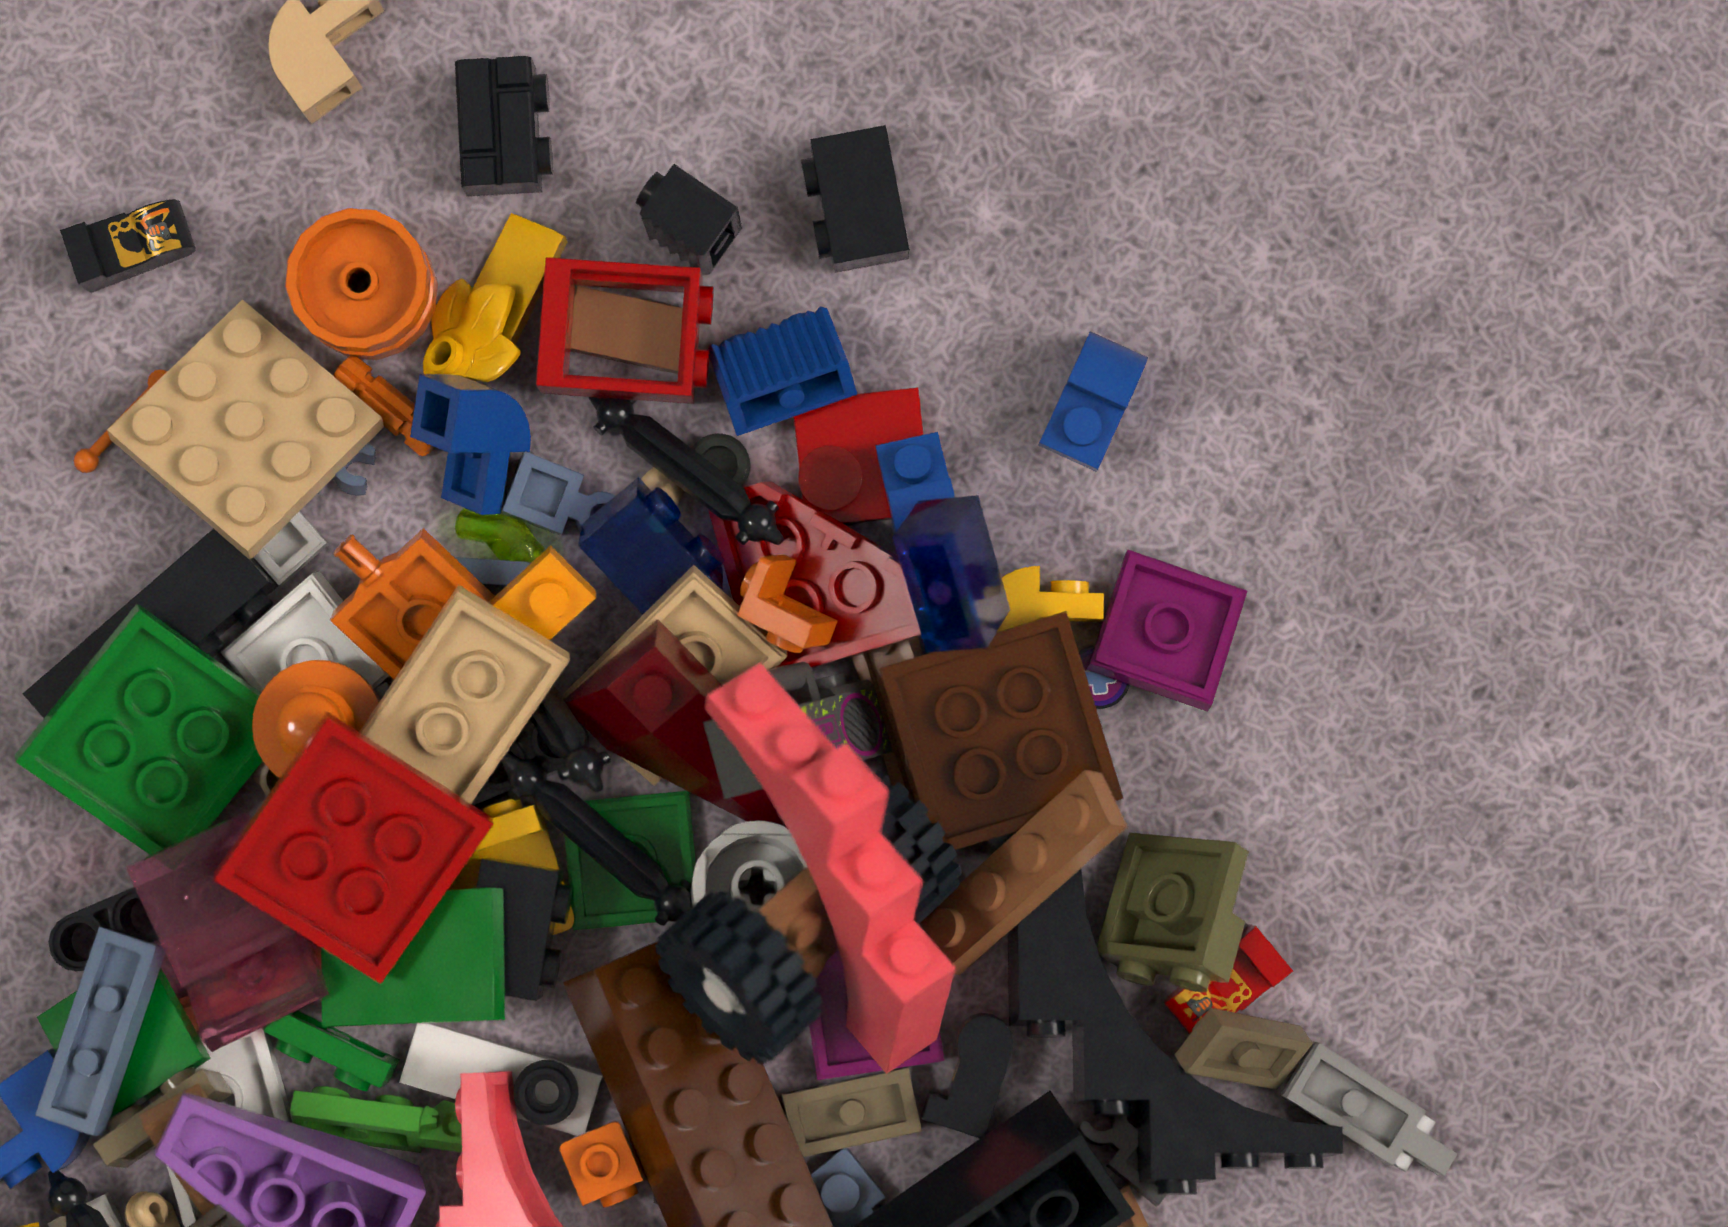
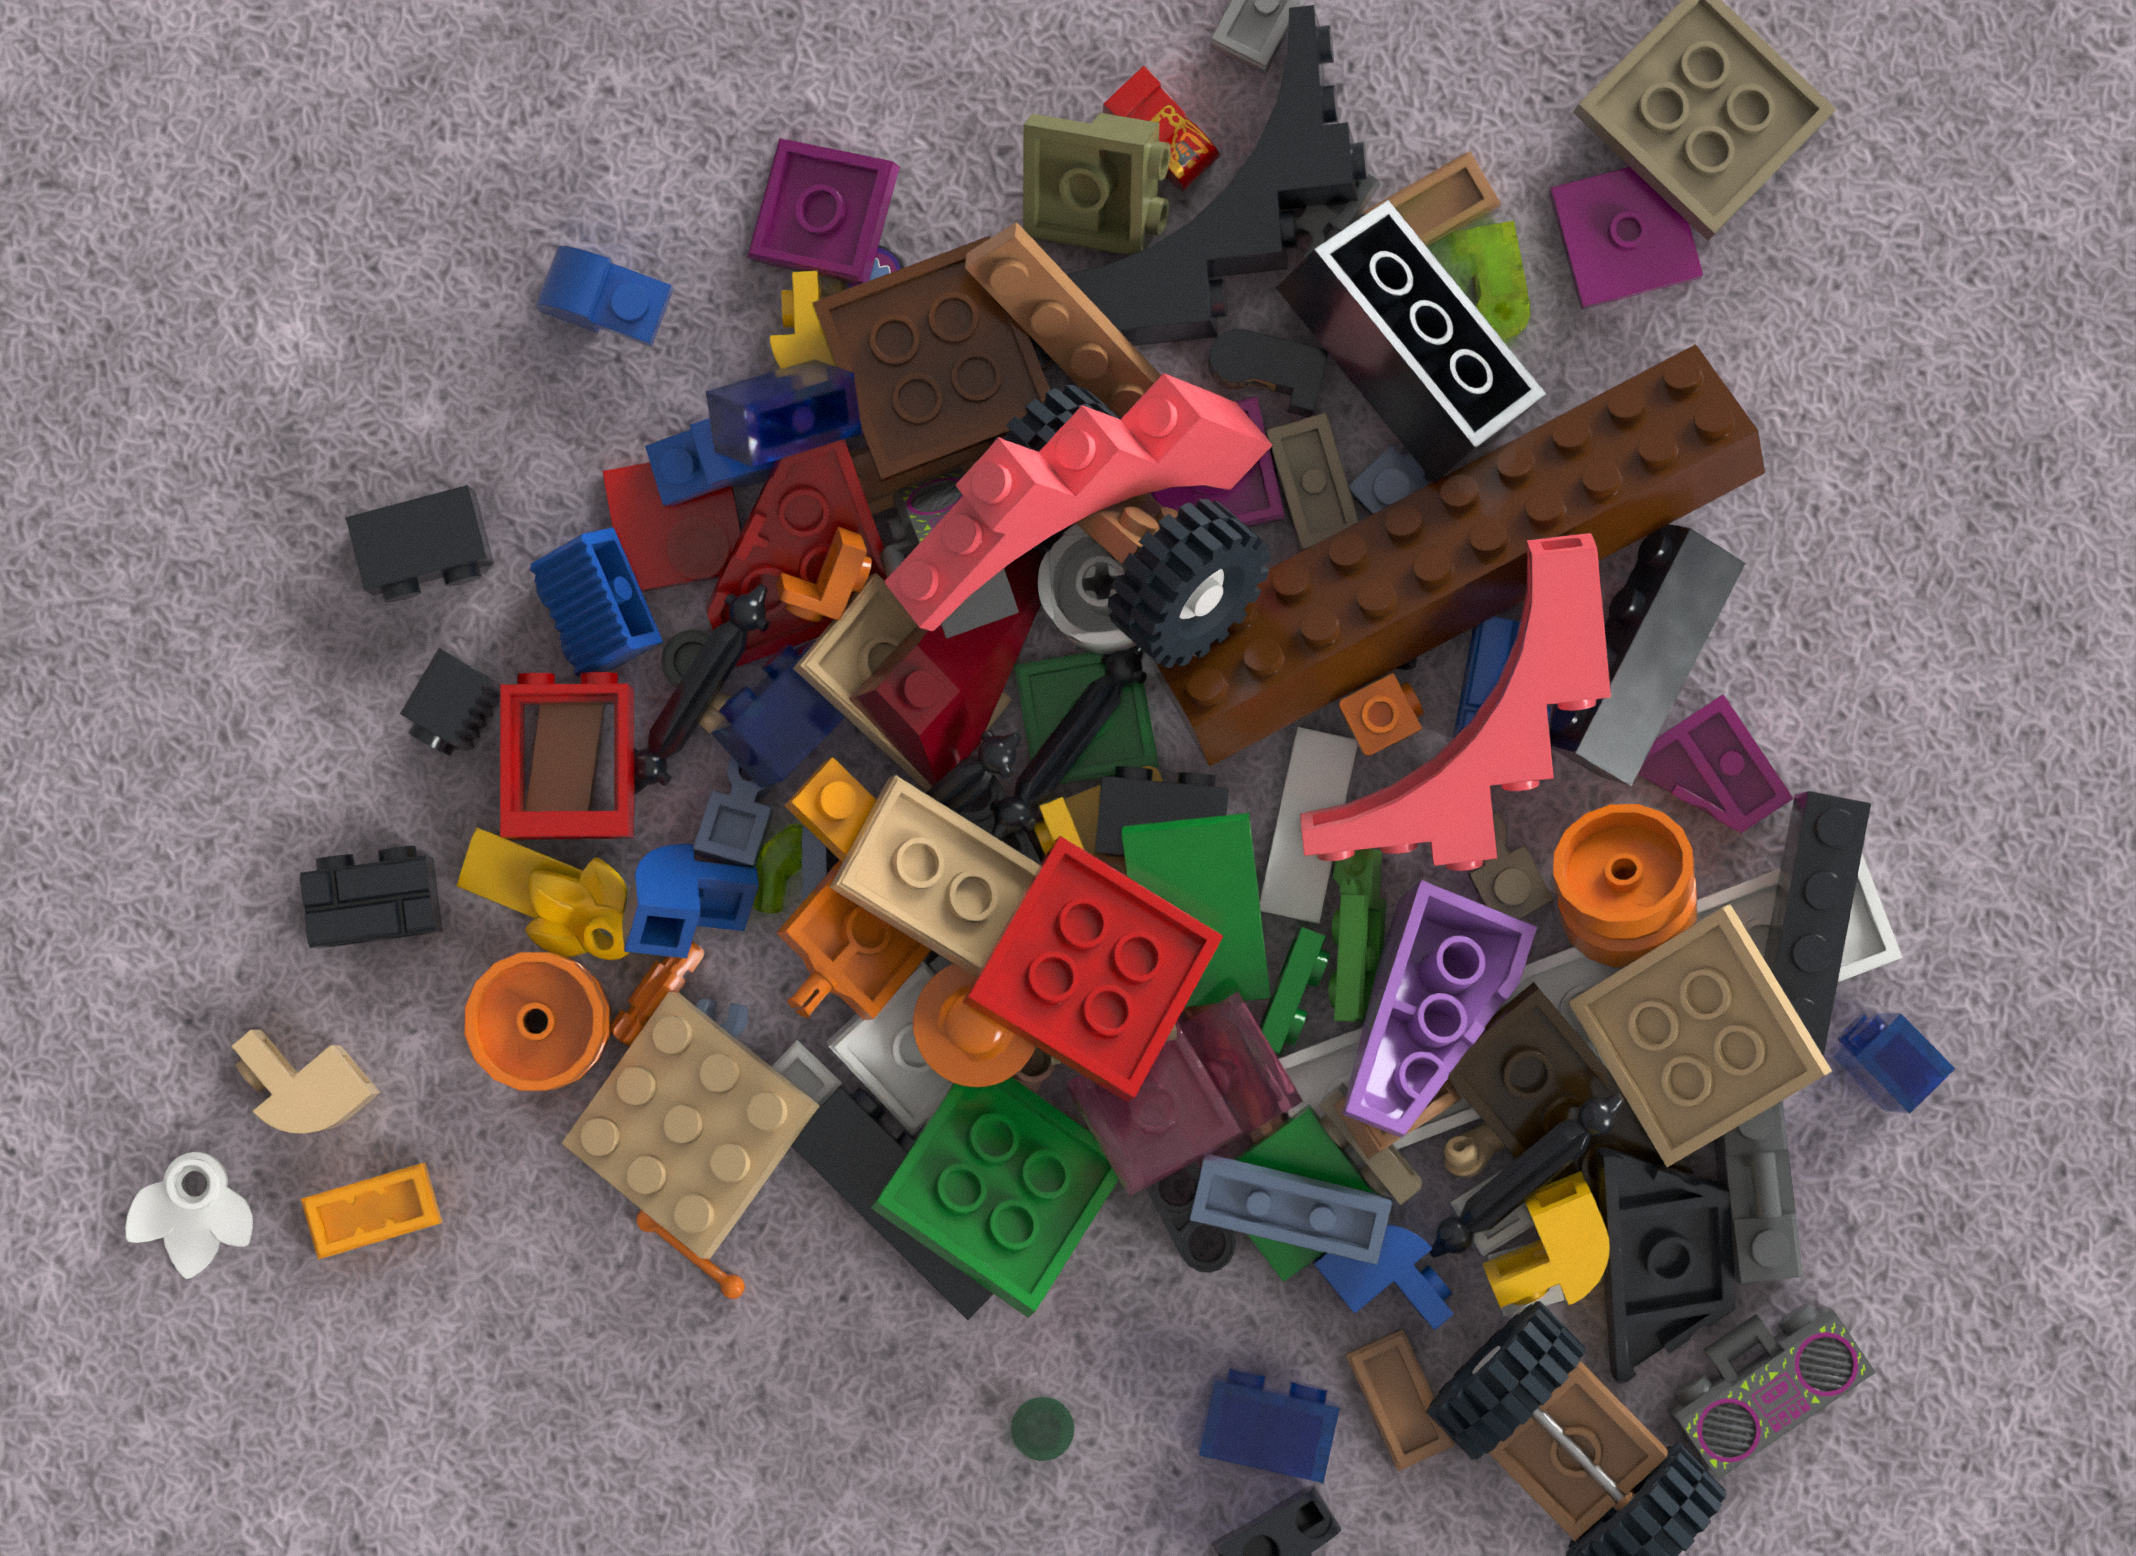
camera: 95 degrees left, 0 degrees up
(127, 244) = (513, 1259): black leg -> none
(191, 107) = (371, 1210): none -> light orange plate
(527, 1101) = (1336, 770): black plate -> none
(1243, 1048) = (1222, 108): dark tan plate -> none

